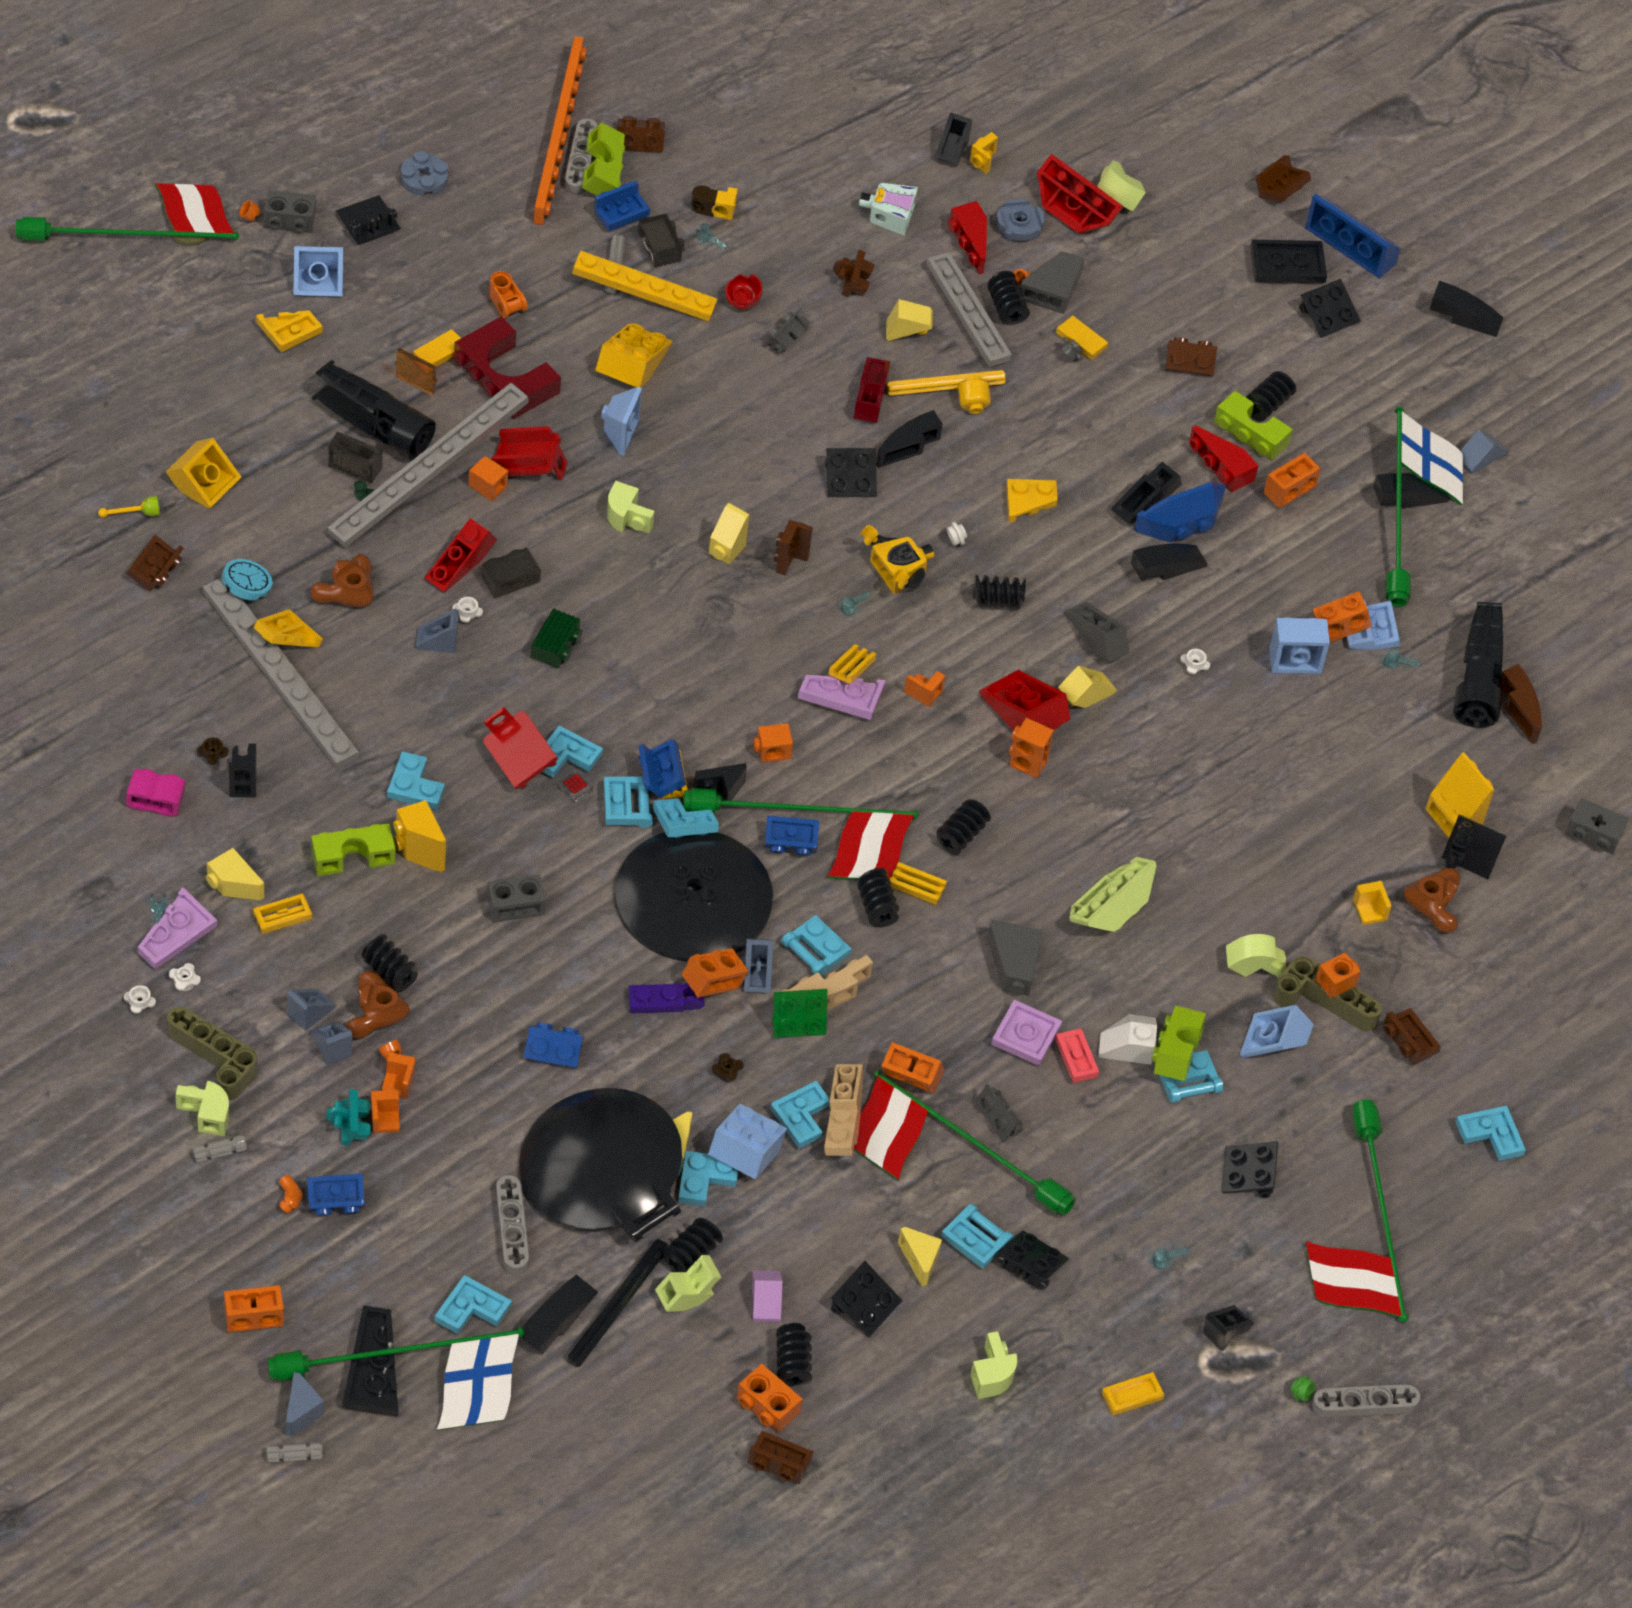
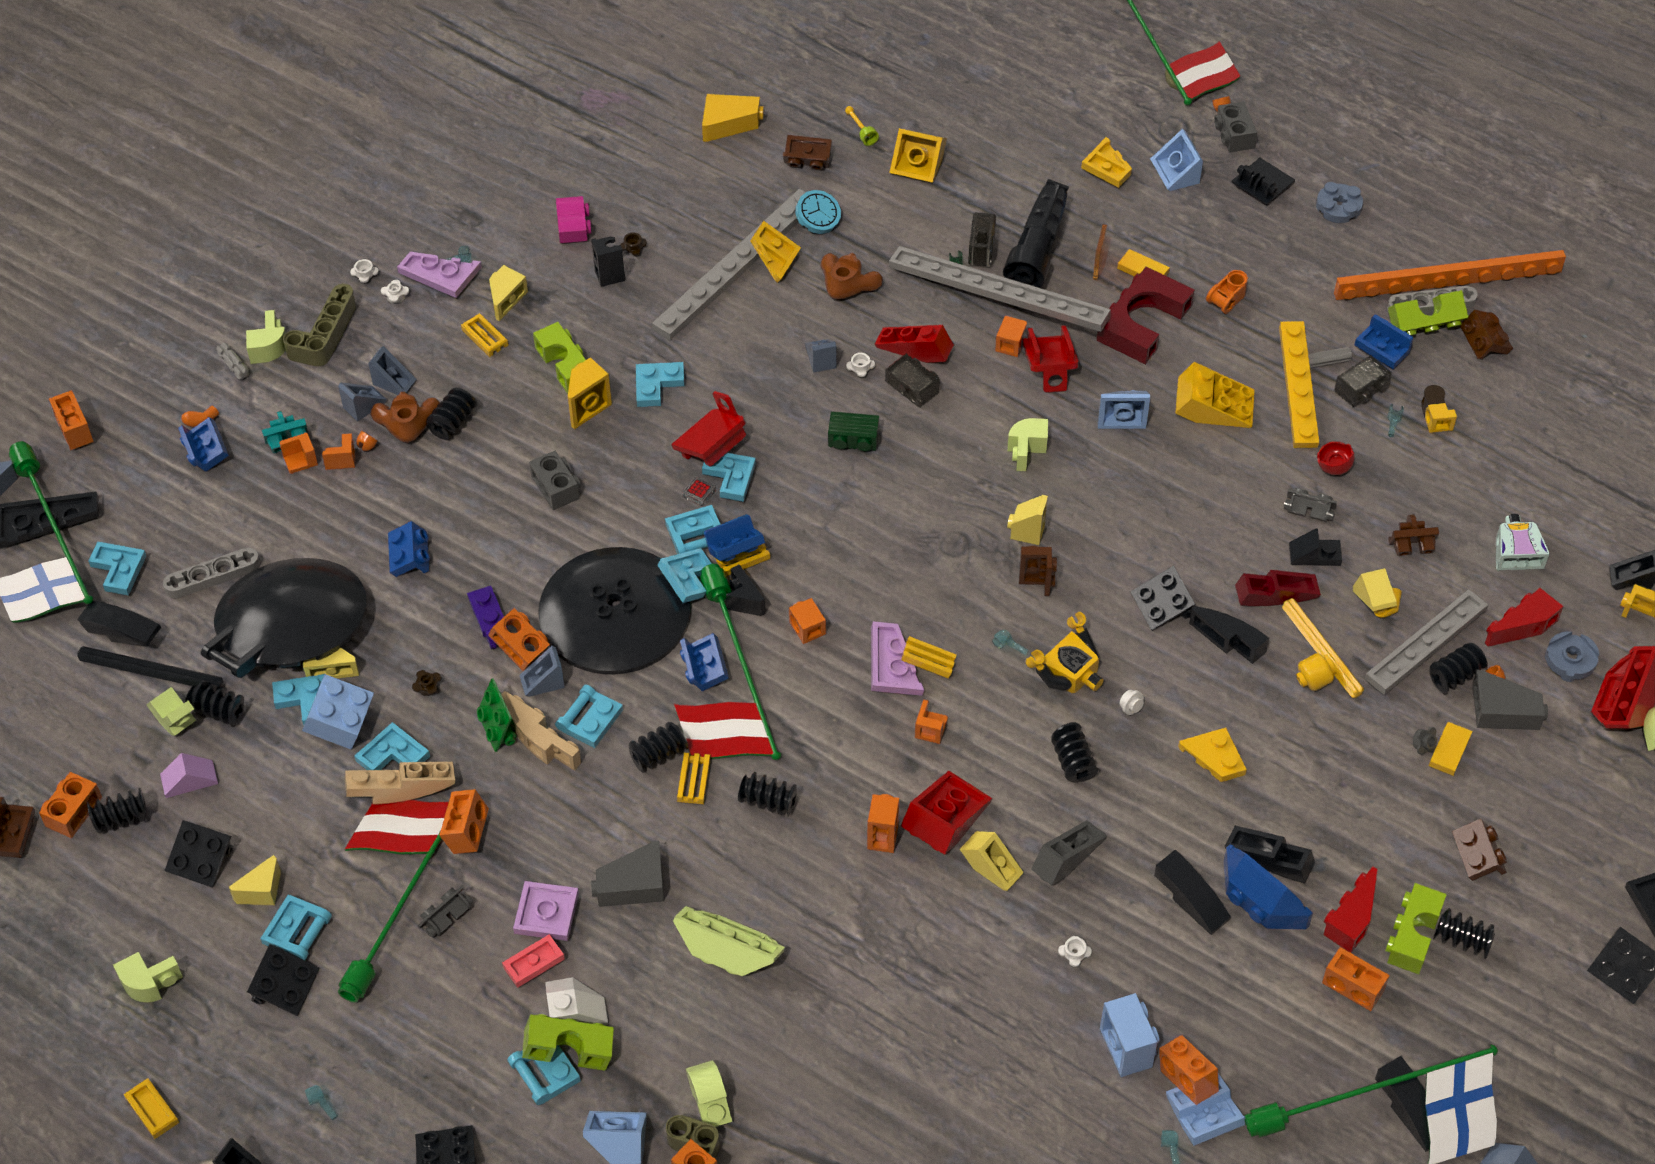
camera: 80 degrees right, 0 degrees up
(64, 615) = (730, 115): none -> yellow slope
(837, 349) = (1312, 551): none -> black slope

